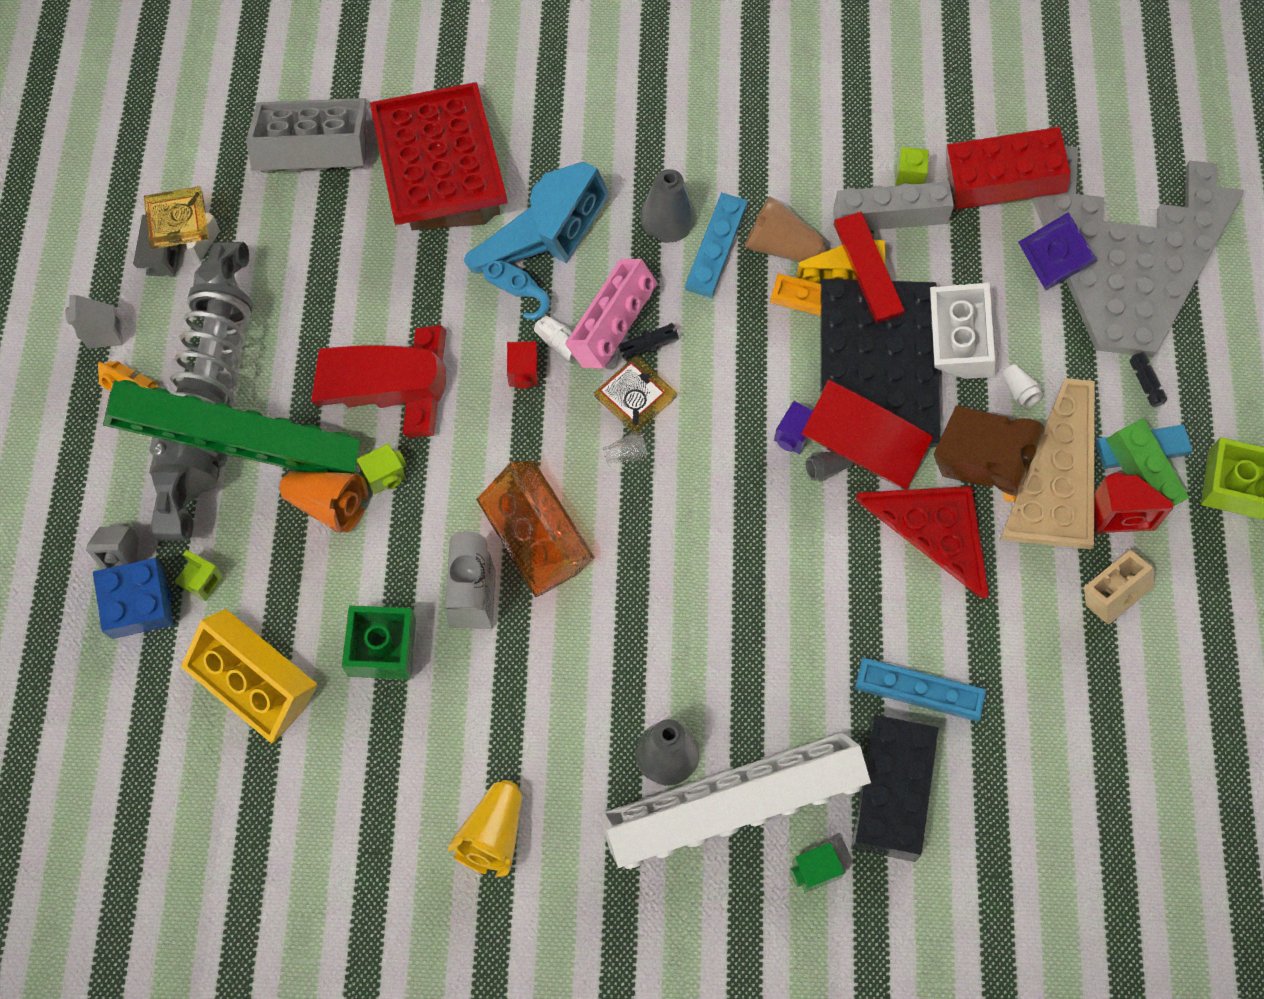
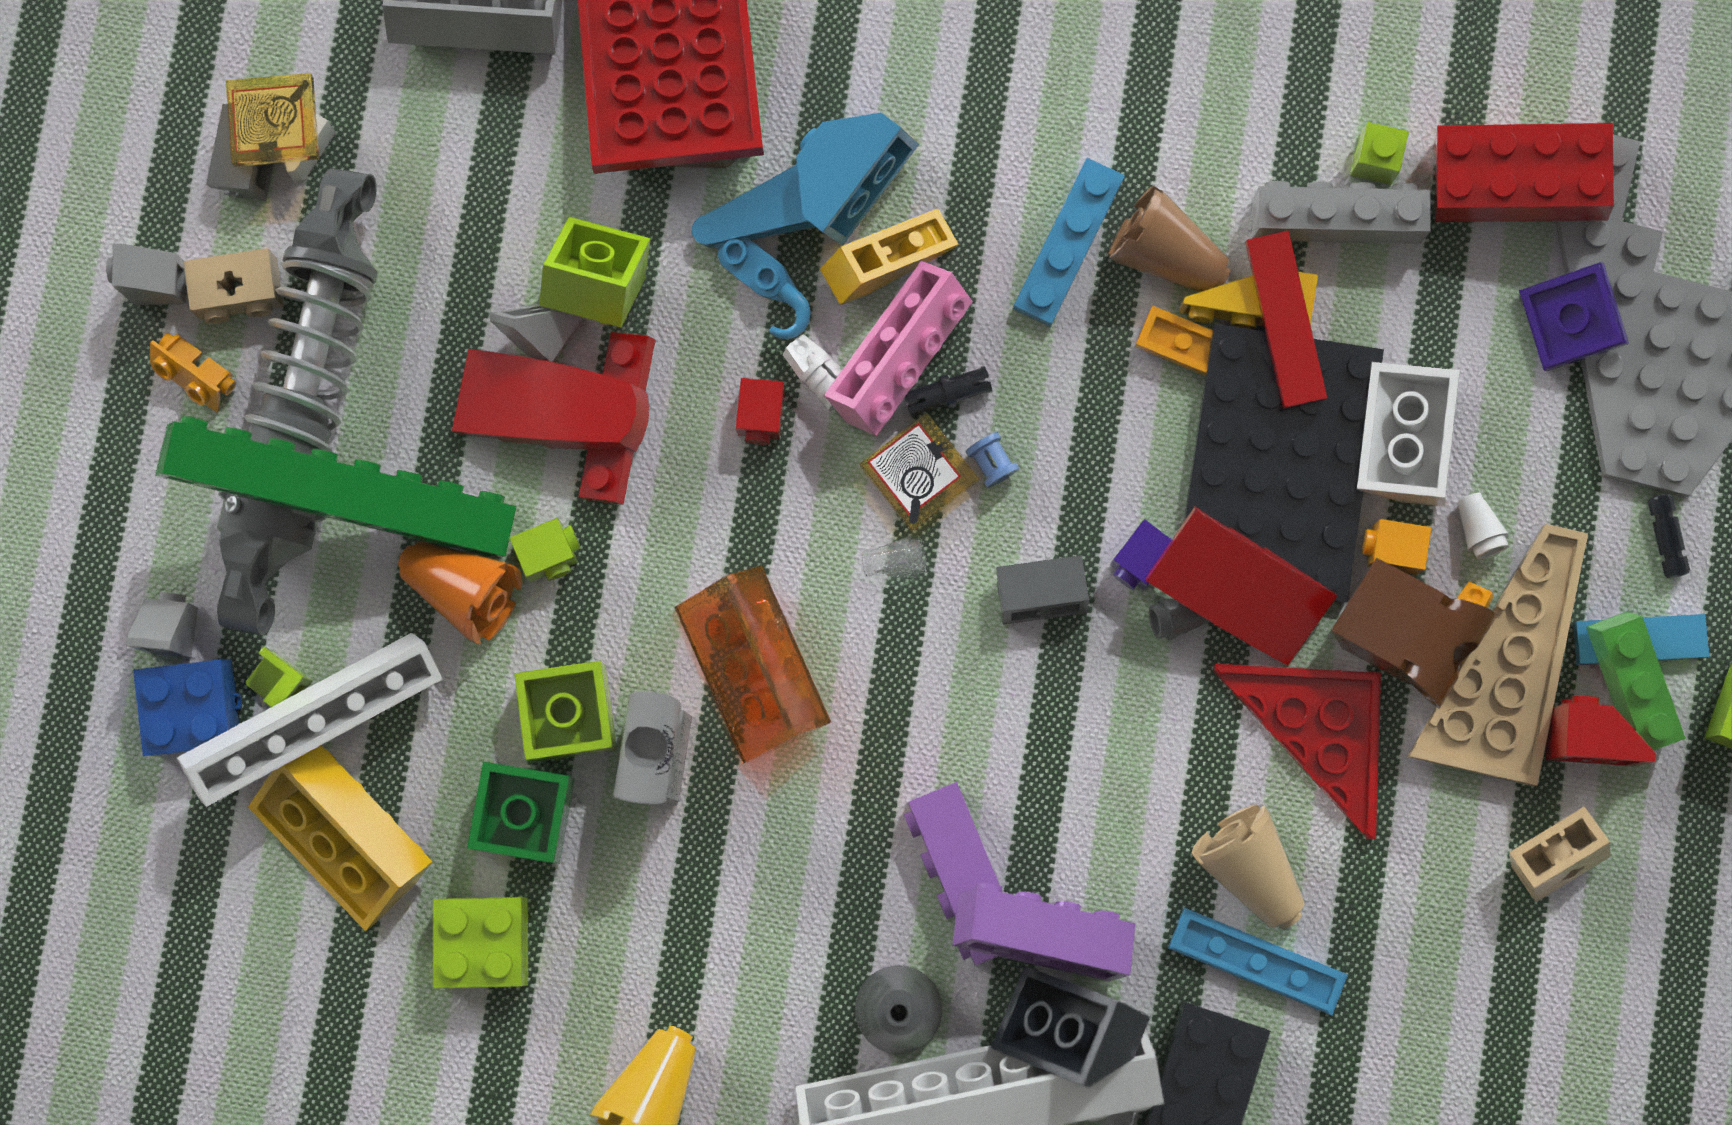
camera: 10 degrees right, 15 degrees up
(153, 324) = (213, 276): none -> tan brick
(220, 590) = (309, 719): none -> white brick
(356, 737) = (480, 942): none -> lime brick
(364, 327) = (536, 329): none -> light grey slope
(400, 287) = (594, 271): none -> lime brick
(405, 570) = (565, 711): none -> lime brick
(593, 263) = (886, 255): none -> yellow slope
(668, 208) = (1002, 184): dark grey cone -> none
(687, 388) = (991, 445): none -> medium blue bush
(702, 650) = (952, 849): none -> medium lavender brick
(730, 458) = (1042, 589): none -> dark grey hinge
(765, 678) = (1043, 932): none -> medium lavender brick
(794, 735) = (1068, 1029): none -> black slope
(907, 621) = (1253, 866): none -> tan cone
(967, 396) = (1397, 544): none -> light orange brick

